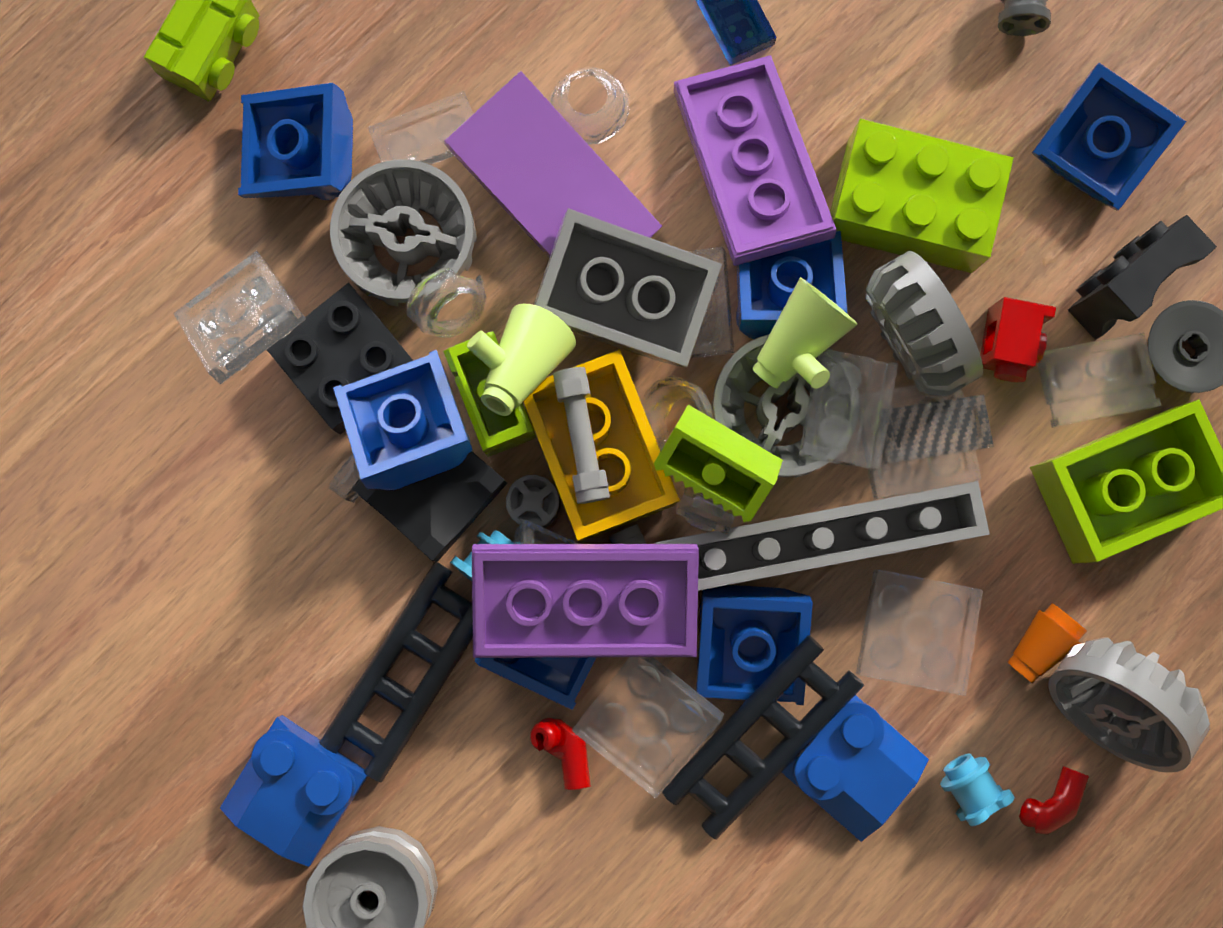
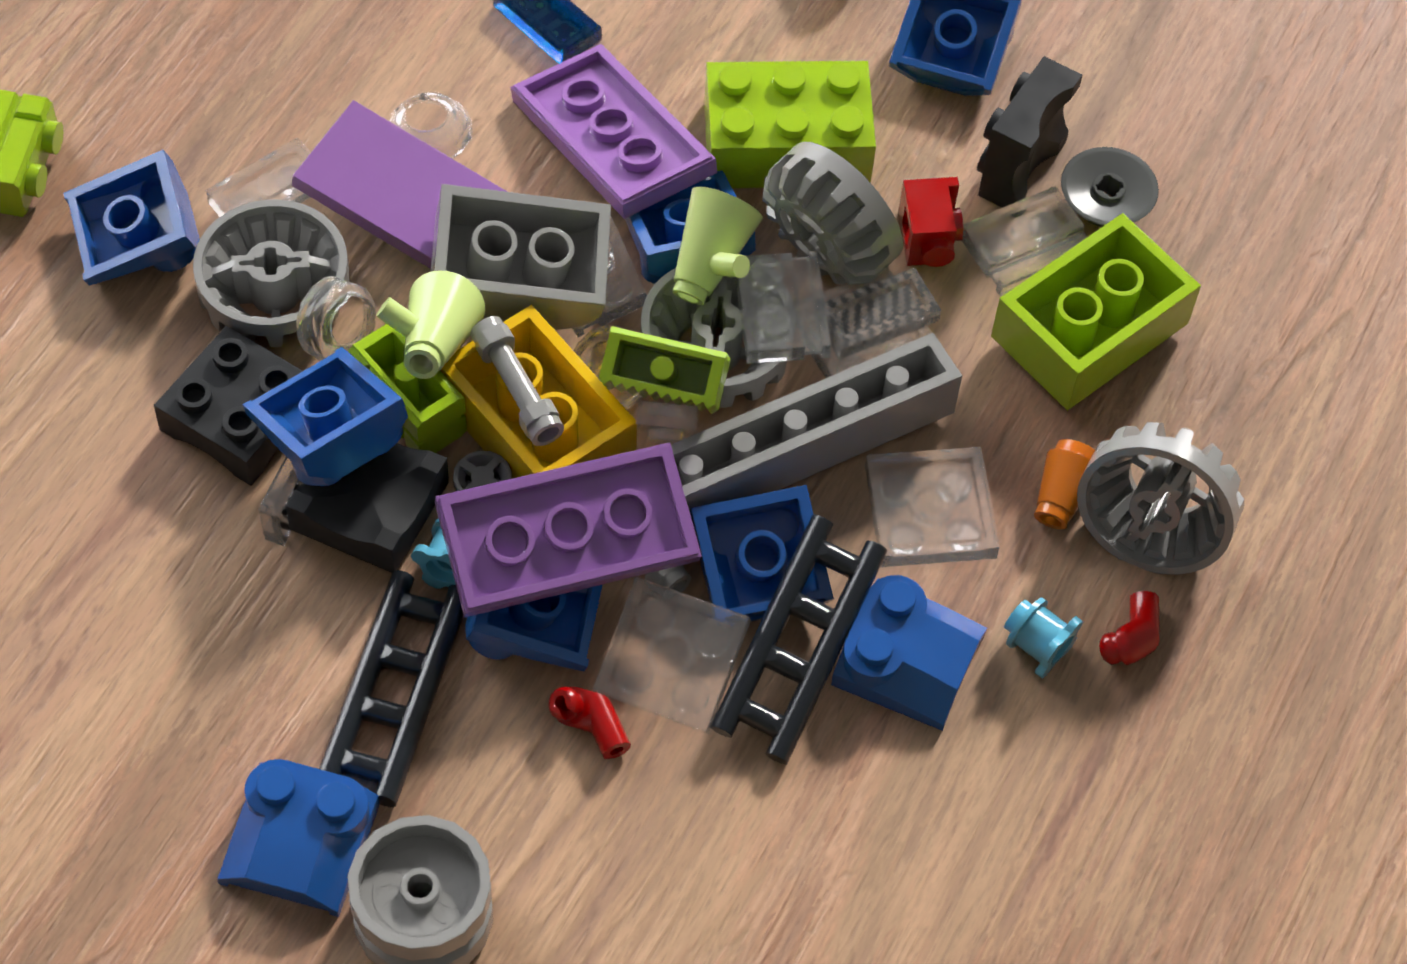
camera: 15 degrees left, 25 degrees down
(238, 317) = (117, 384): clear plate -> none

